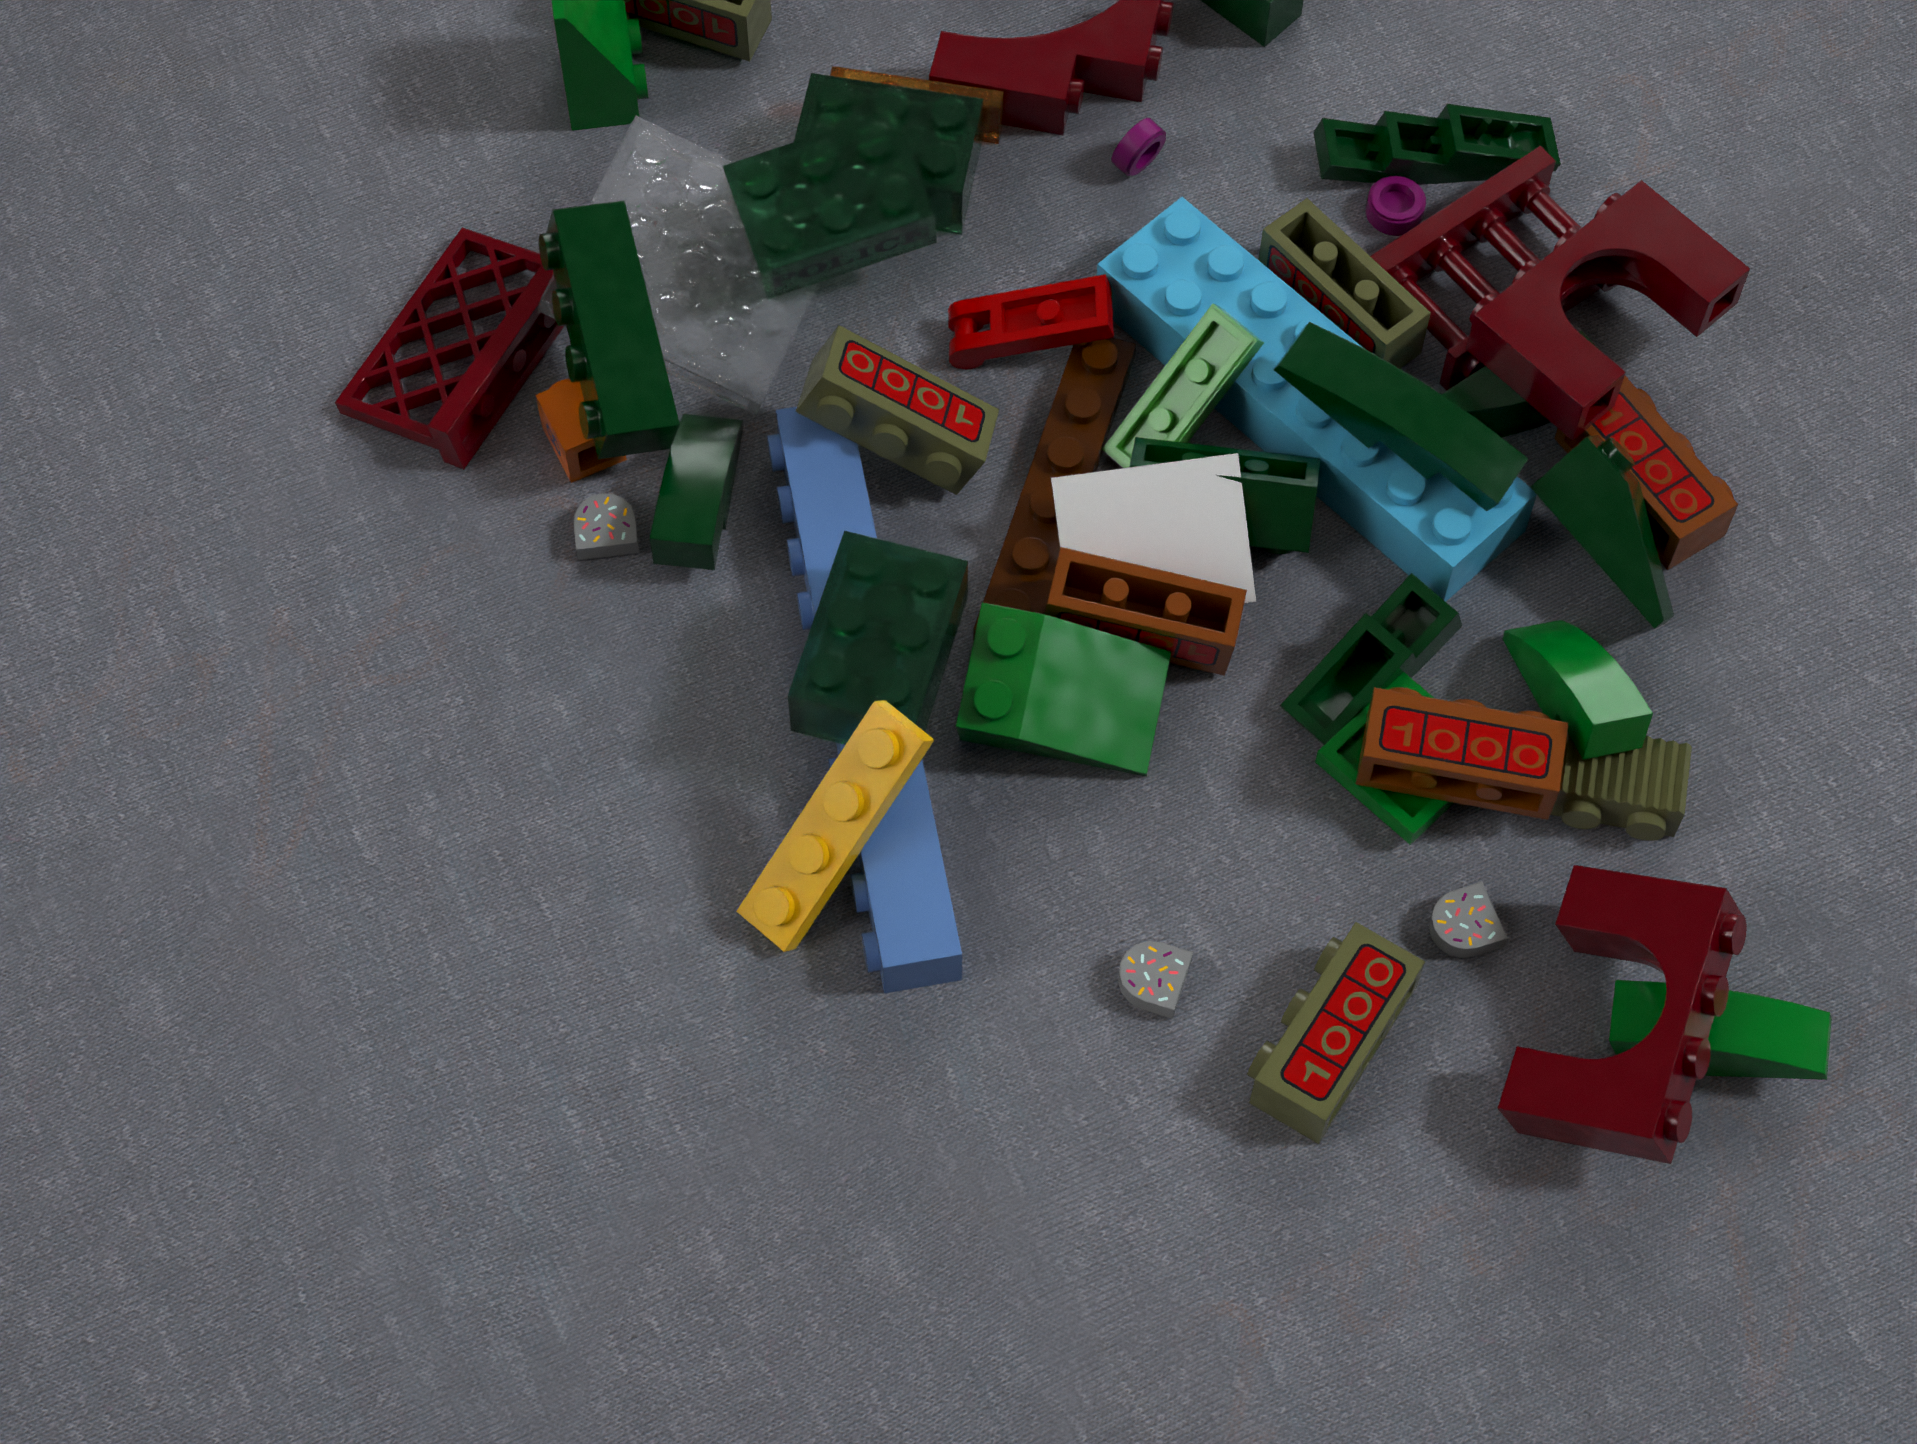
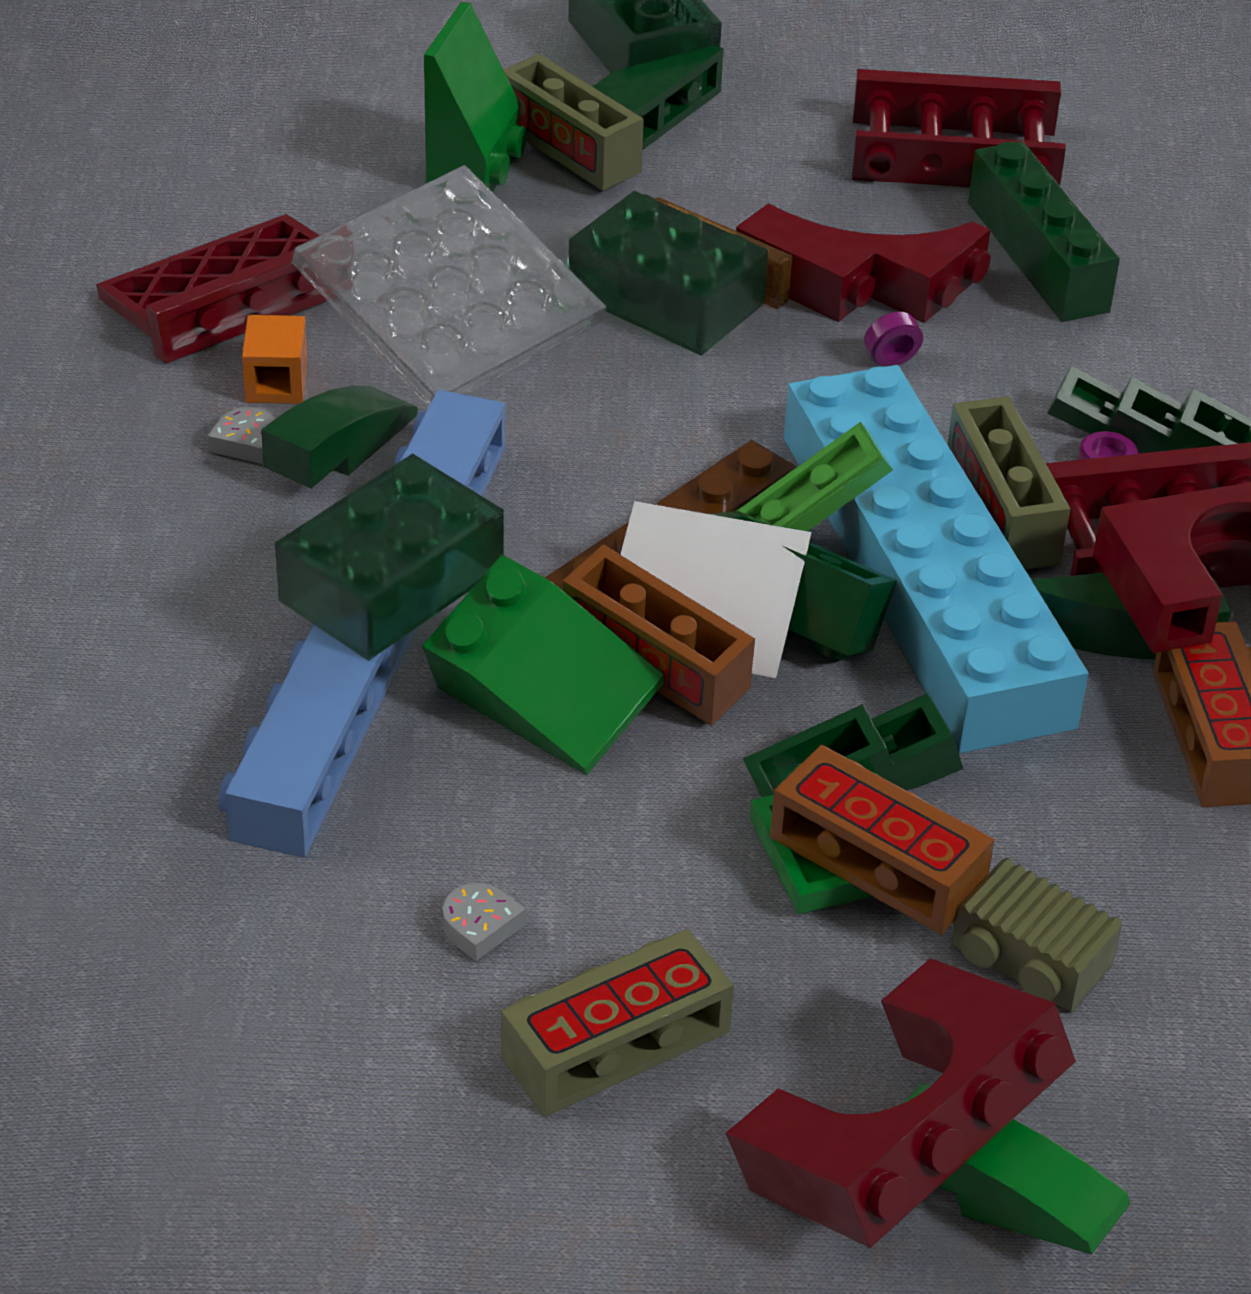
camera: 25 degrees right, 20 degrees down
(609, 330) = (328, 277): dark green brick -> none
(831, 203) = (577, 260): clear green brick -> none
(835, 825) = (256, 668): yellow plate -> none
(897, 410) = (538, 419): olive brick -> none
(1030, 320) = (709, 413): red plate -> none
(1402, 412) = (986, 555): dark green slope -> none
(1466, 923) = (809, 994): light grey tile -> none
(1581, 686) = (1037, 842): green slope -> none
(1608, 516) = (1152, 722): dark green slope -> none

